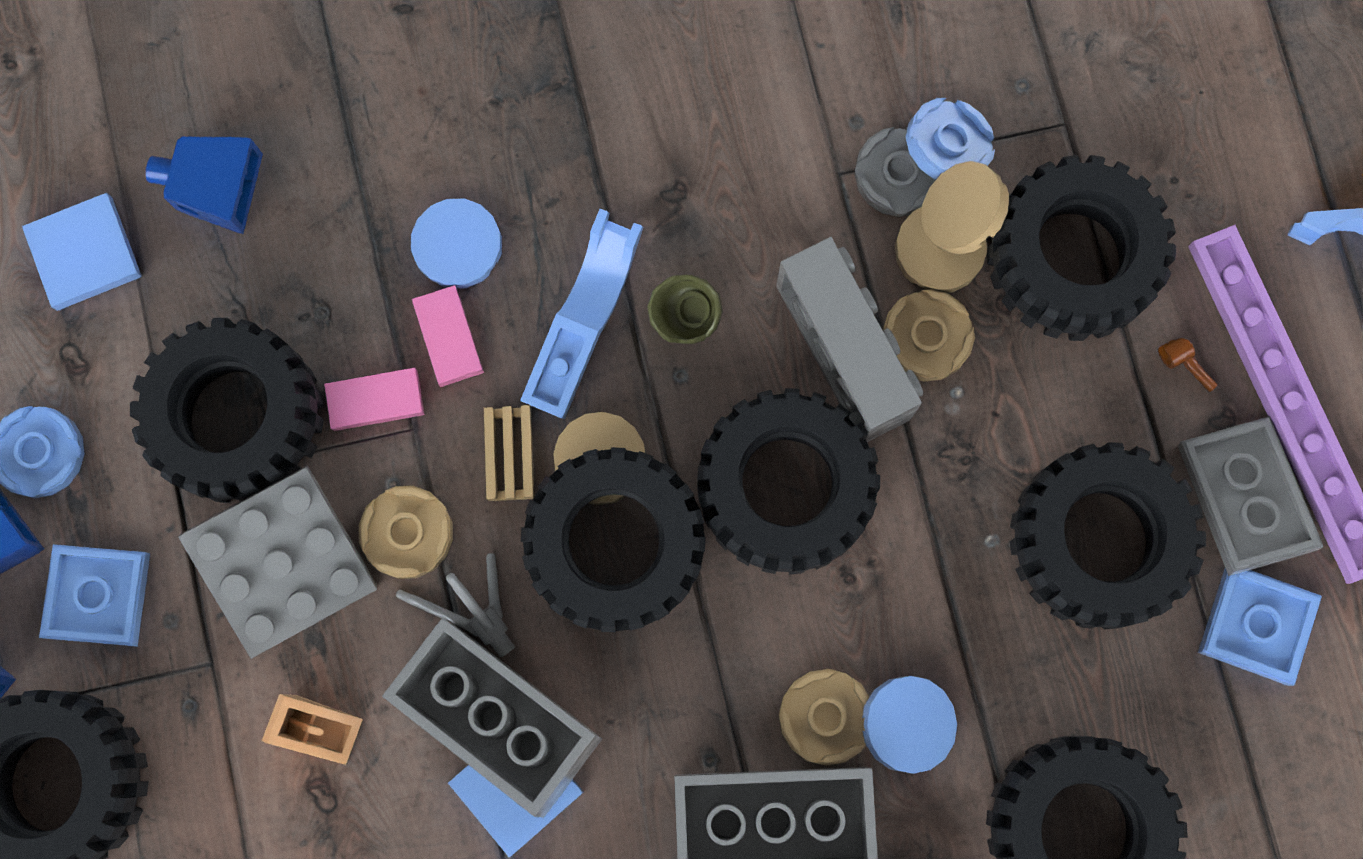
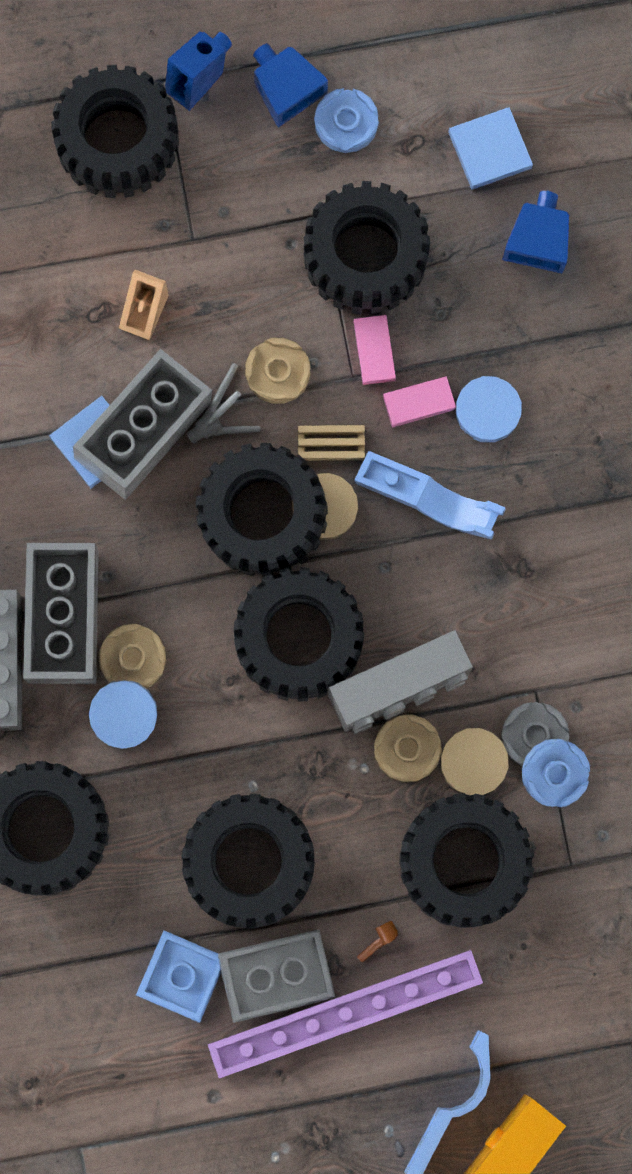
camera: 85 degrees right, 0 degrees up
(94, 595) = (243, 161): light blue tile -> none
(278, 561) = (259, 283): light grey plate -> none
(685, 309) = (430, 568): olive hair -> none
(964, 207) = (497, 773): tan tile -> none

